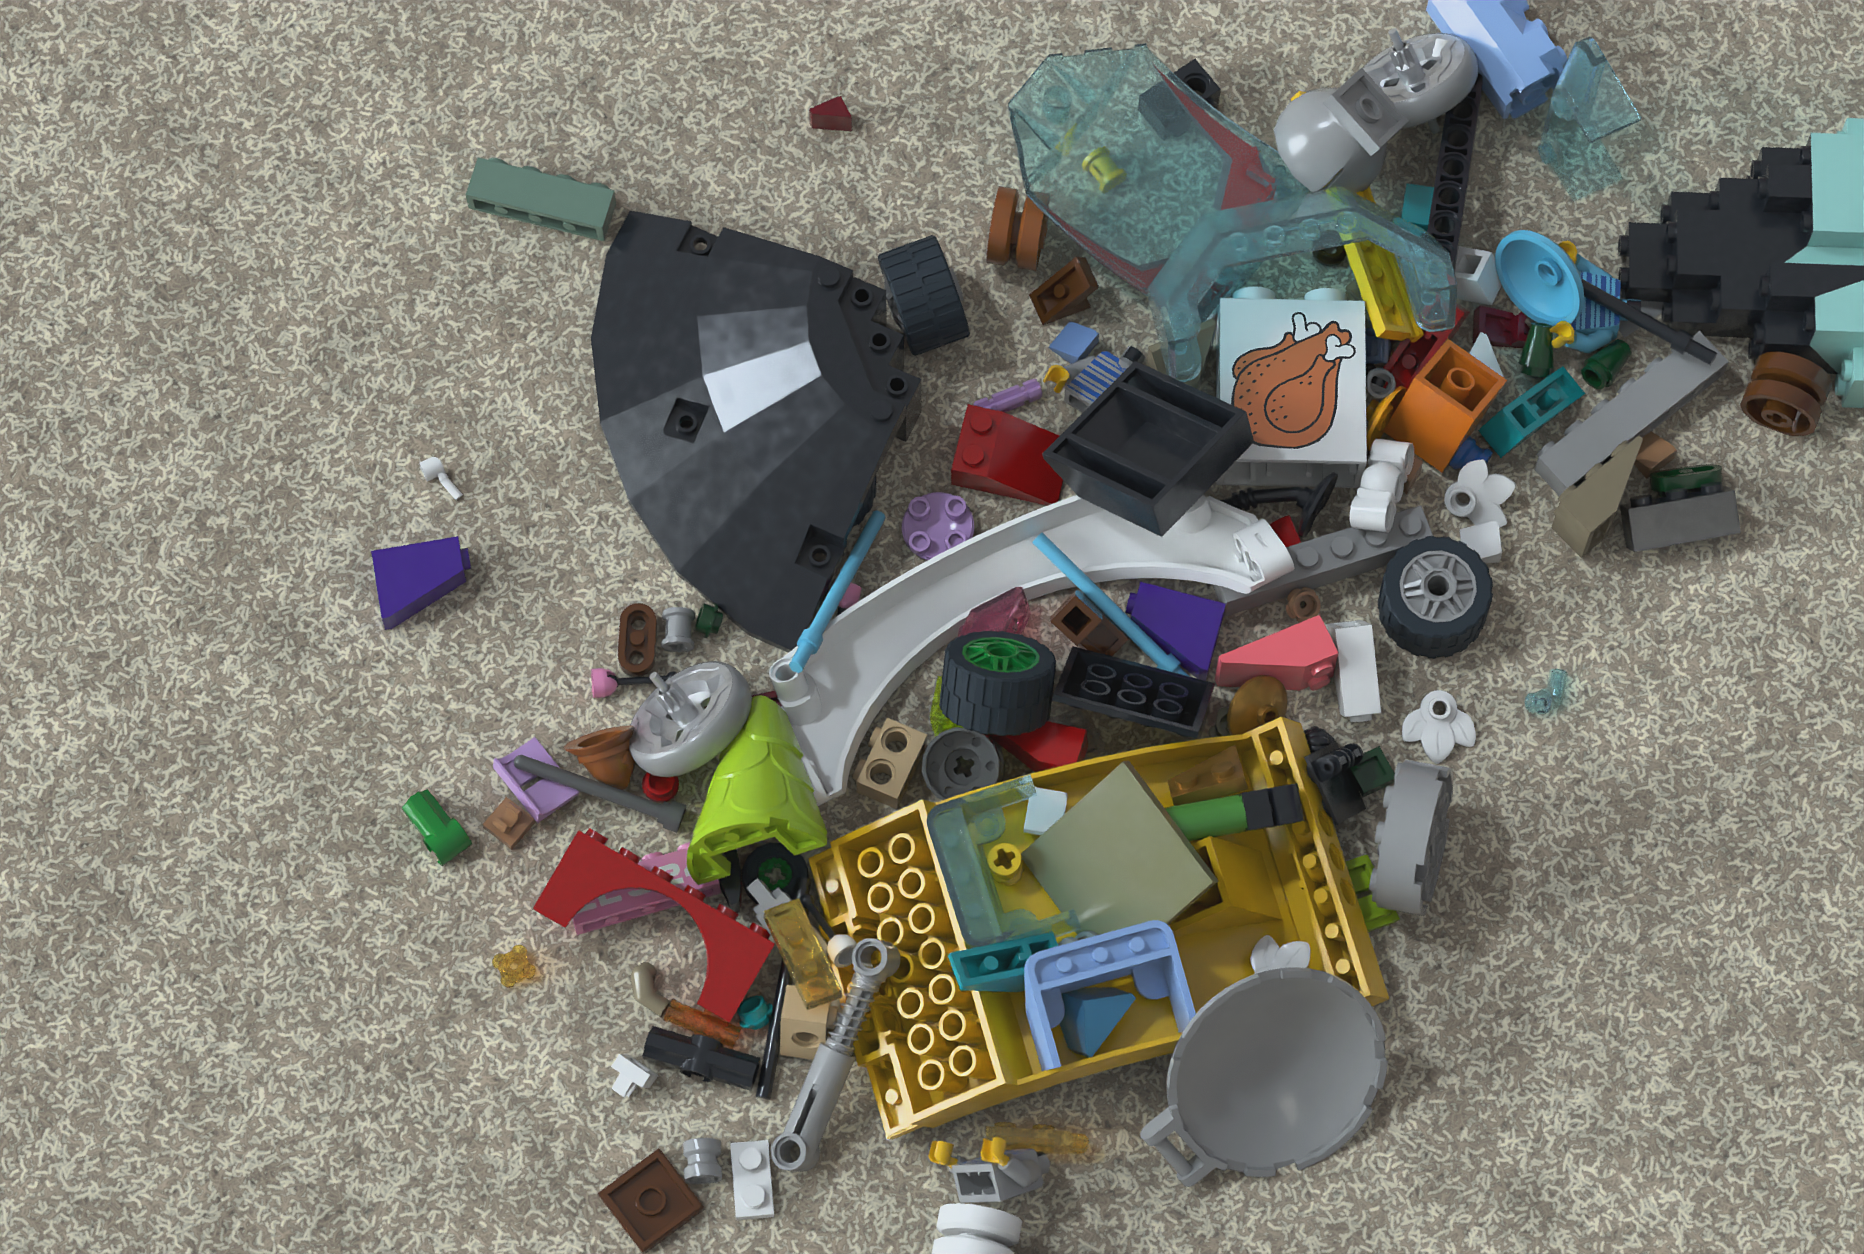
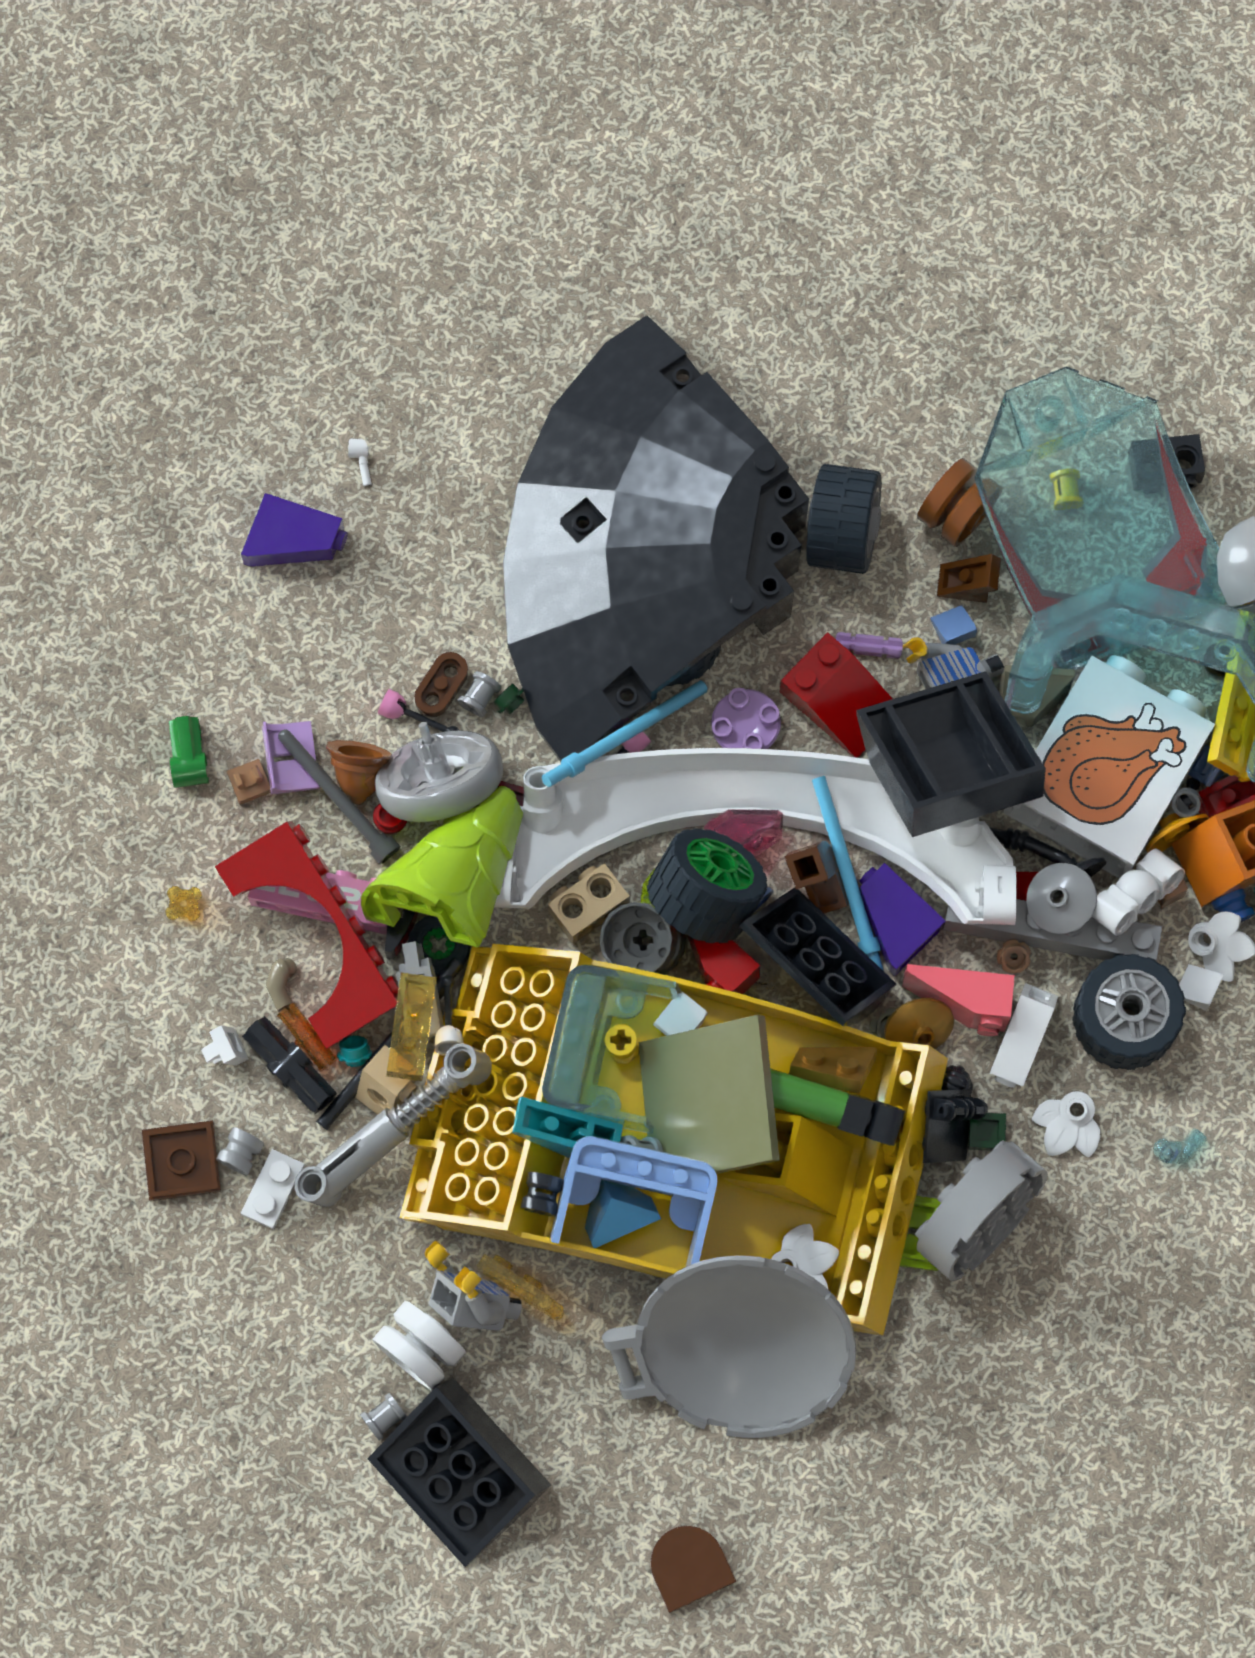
camera: 30 degrees right, 5 degrees up
(541, 198) = (578, 266): sand green brick -> none
(831, 115) = (861, 321): dark red slope -> none
(1017, 1033) = (540, 1202): none -> black wheel
(1338, 529) = (1076, 906): none -> light grey dish

